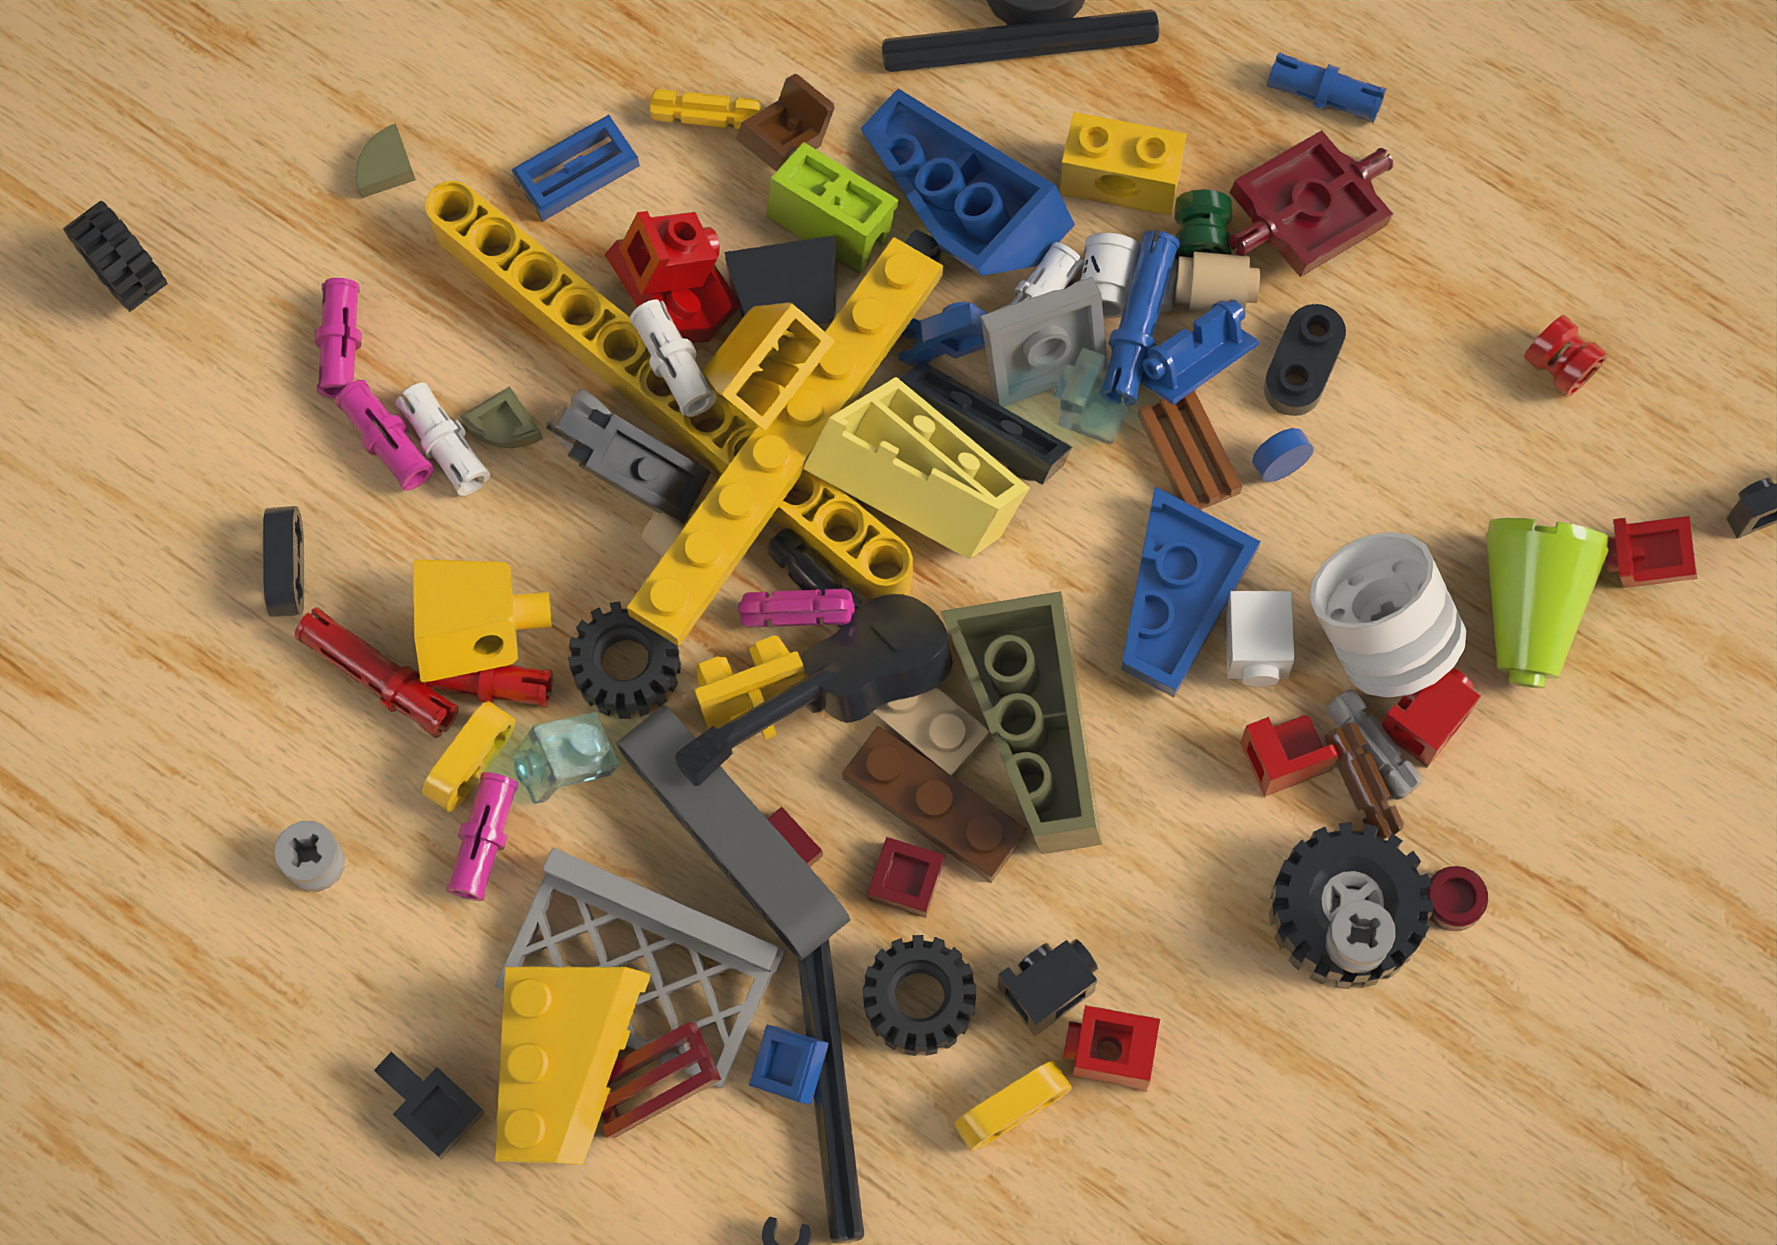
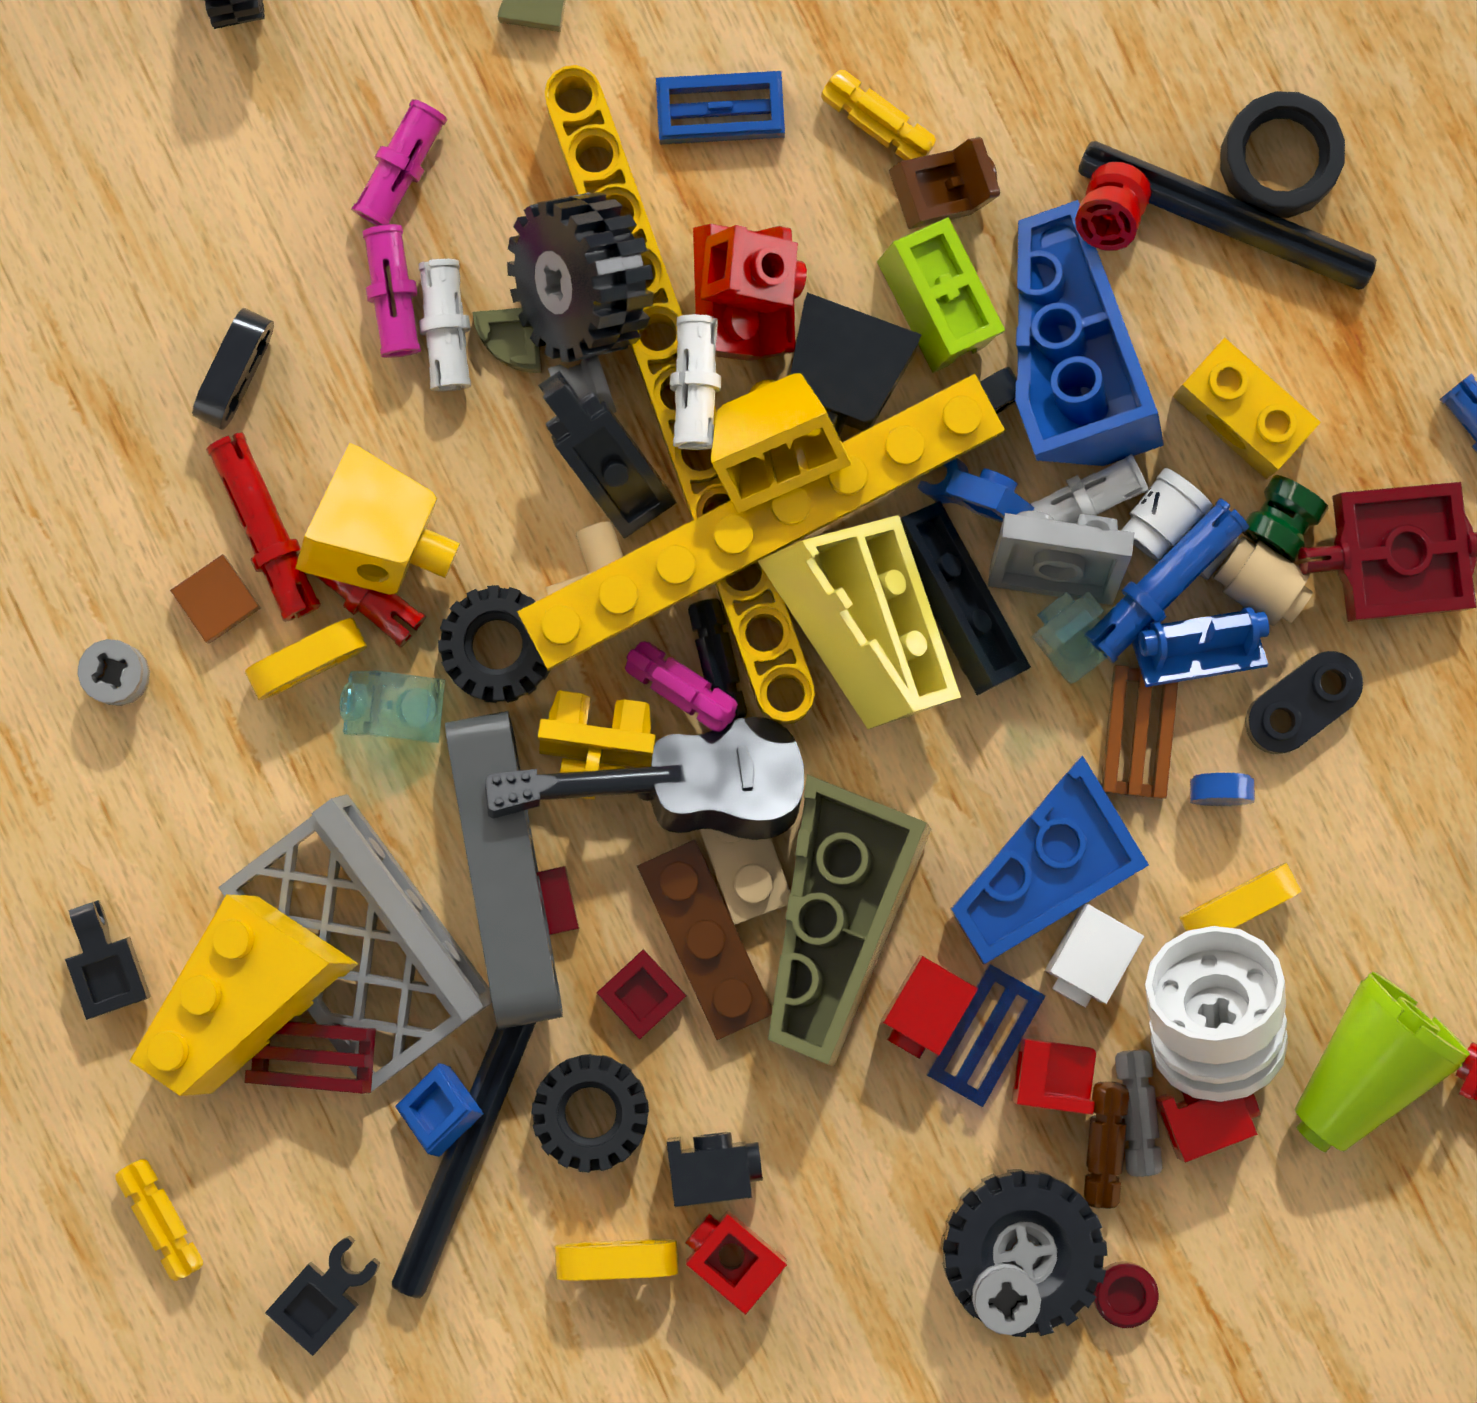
camera: 25 degrees right, 15 degrees up
(366, 753) = (215, 599): none -> dark orange tile
(482, 836) = (247, 773): dark pink pin -> none
(533, 330) = (580, 276): none -> black wheel
(925, 59) = (1113, 206): none -> red wheel
(1150, 751) = (927, 1008): none -> red brick
(1210, 703) = (1012, 988): none -> clear blue tile
(1358, 521) = (1244, 900): none -> yellow beam

